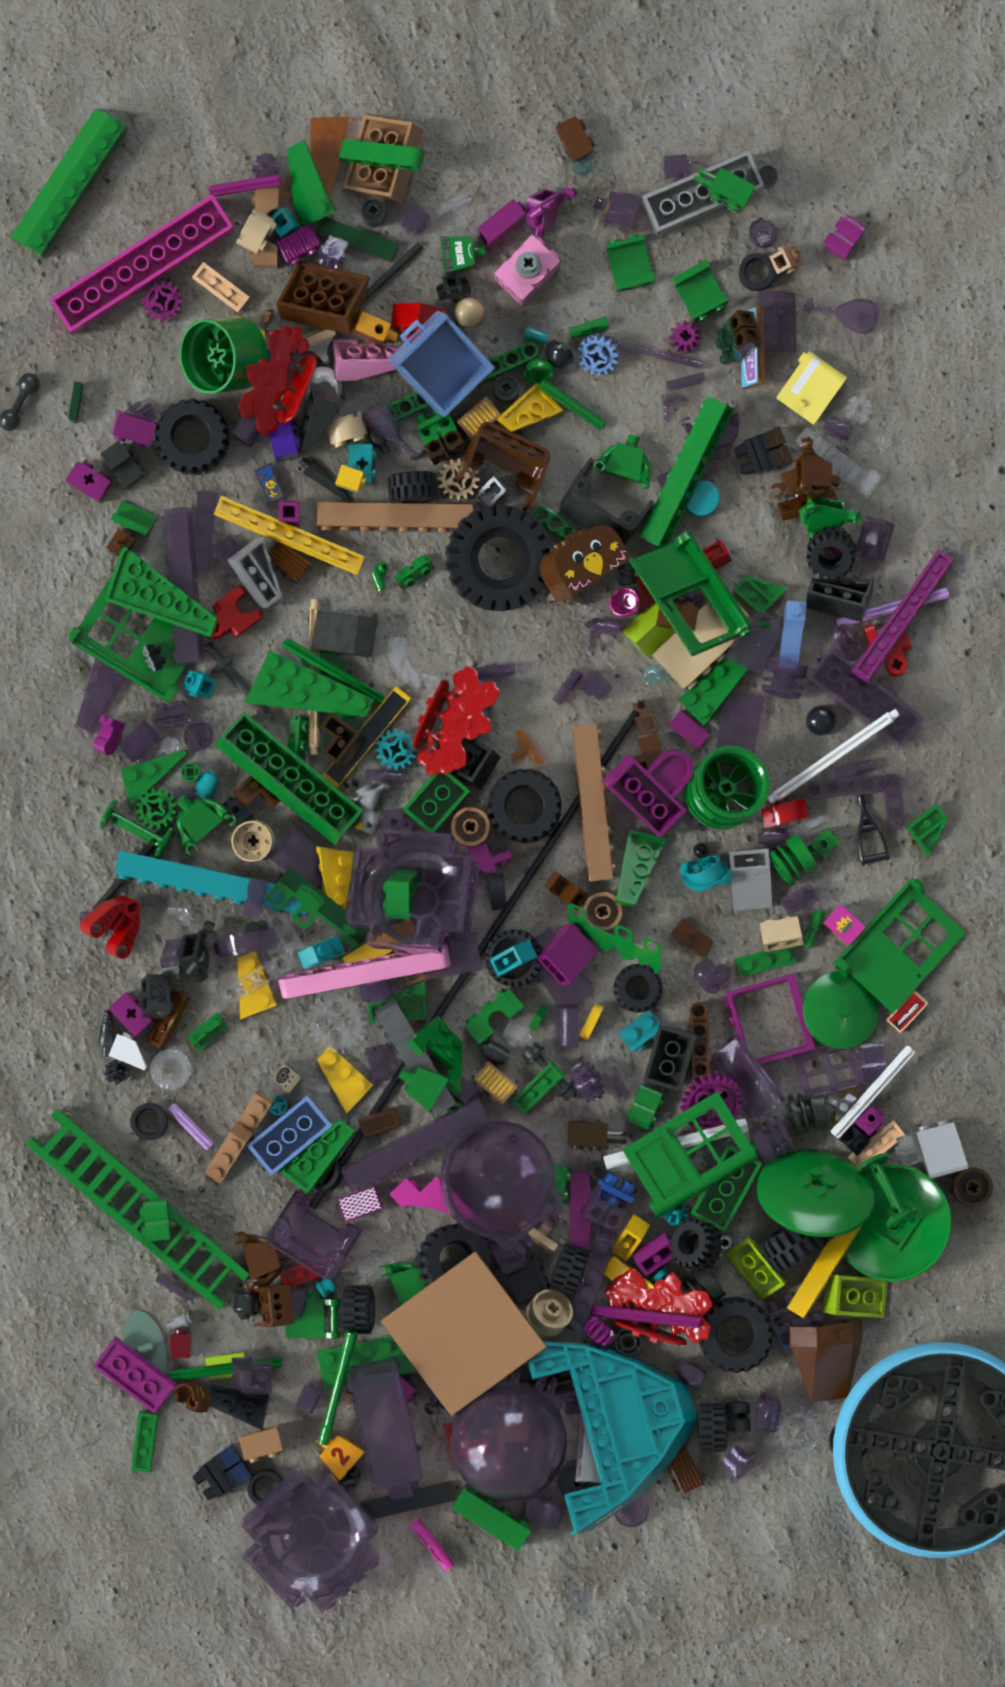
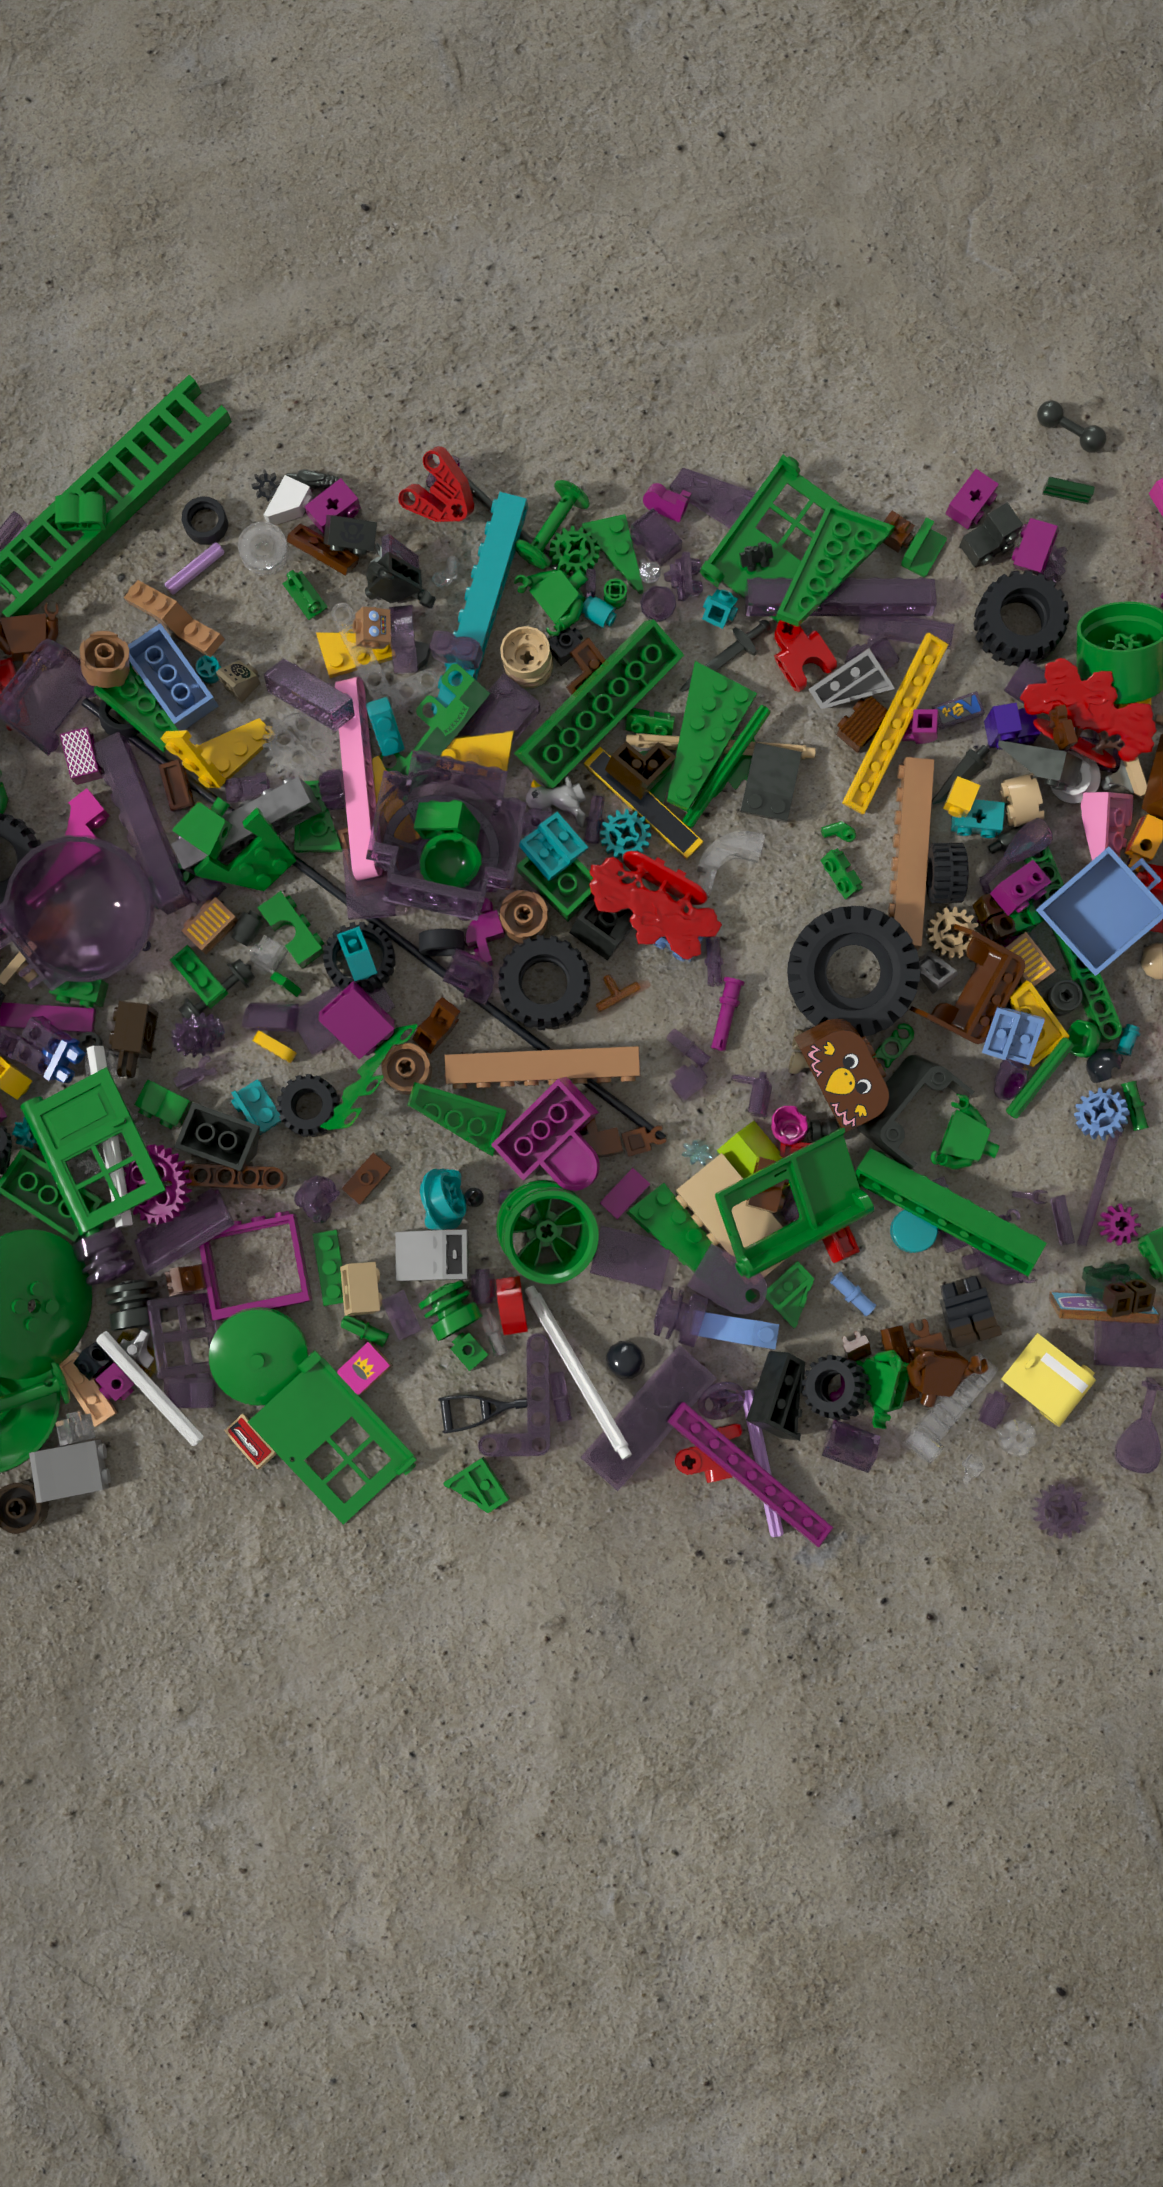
camera: 95 degrees right, 5 degrees down
(243, 967) = (372, 627): none -> medium nougat head
(278, 1177) = (104, 659): none -> medium nougat brick
(294, 400) = (1064, 732): none -> reddish brown plate
(298, 1016) = (309, 694): none -> clear purple brick
(360, 1106) = (179, 744): none -> yellow wing
(414, 806) = (553, 846): none -> teal slope
(422, 428) = (1020, 888): none -> magenta brick
(433, 888) = (450, 860): none -> green cylinder
(522, 864) = (471, 974): none -> clear purple brick
(528, 656) = (728, 1002): none -> magenta pin
(541, 428) = (1013, 1035): none -> medium blue slope
(574, 428) = (1010, 1079): none -> clear purple rock
(755, 544) = (853, 1294): none -> medium blue pin
(785, 1072) = (185, 1280): none -> reddish brown brick
(798, 538) = (857, 1348): none -> reddish brown tile
(920, 377) = (1064, 1502): none -> clear purple gear

